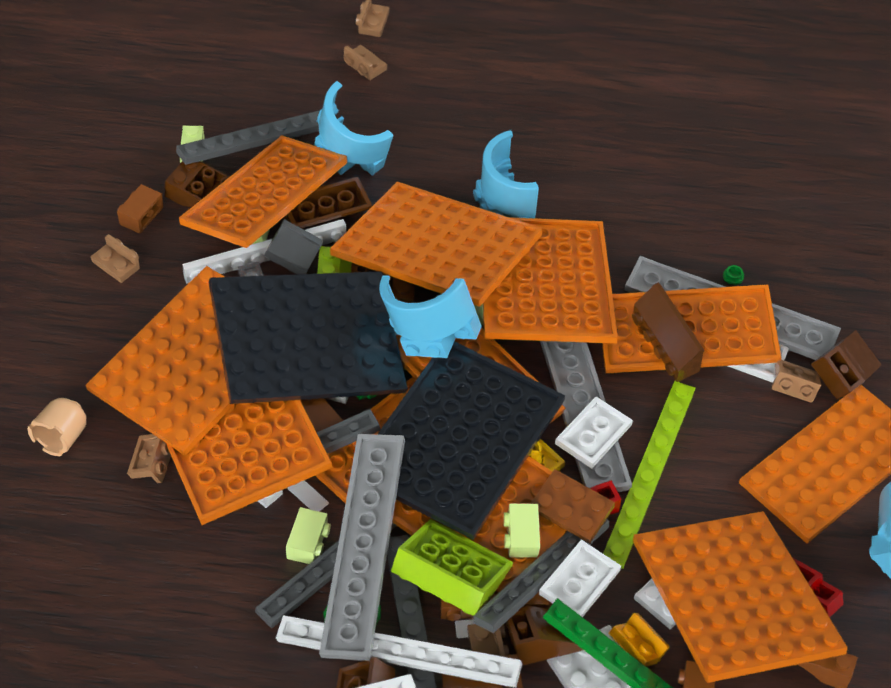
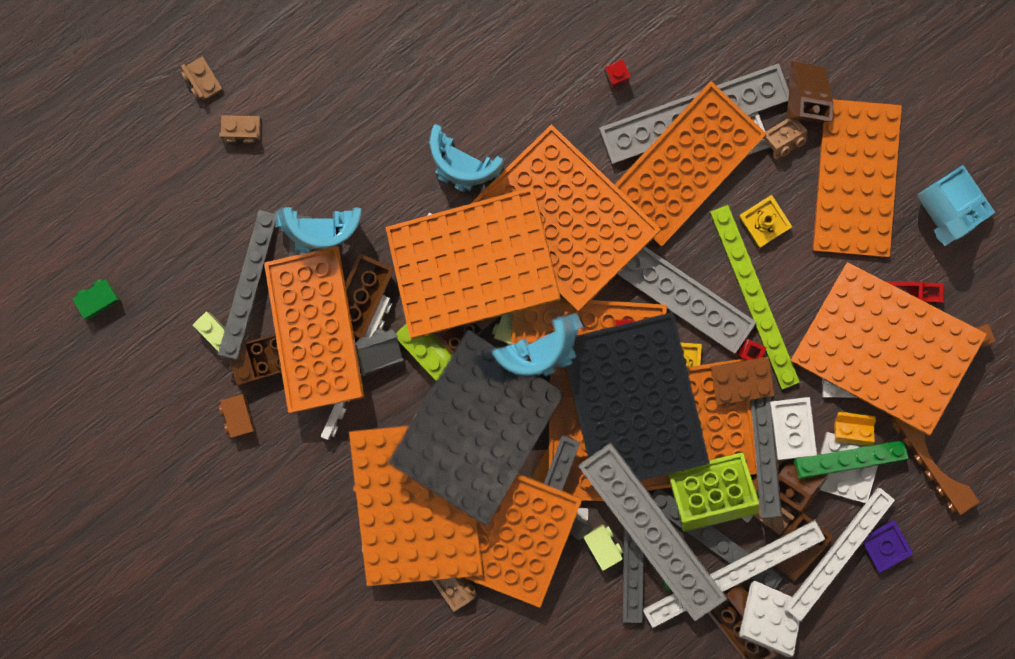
camera: 40 degrees left, 35 degrees up
(58, 426) = (380, 624): light nougat cylinder -> none
(116, 259) = (267, 470): medium nougat bracket -> none
(138, 70) = (96, 299): none -> green brick
(251, 269) = (369, 394): clear plate -> none
(305, 496) = (580, 526): none -> clear smoke brick
(523, 530) = (729, 427): yellowish green brick -> none
(593, 432) = (702, 308): white plate -> none
(668, 333) = (686, 191): reddish brown slope -> none
(692, 235) = (617, 73): none -> red brick
(718, 420) = (768, 208): none -> yellow plate
(733, 275) = (671, 81): green plate -> none

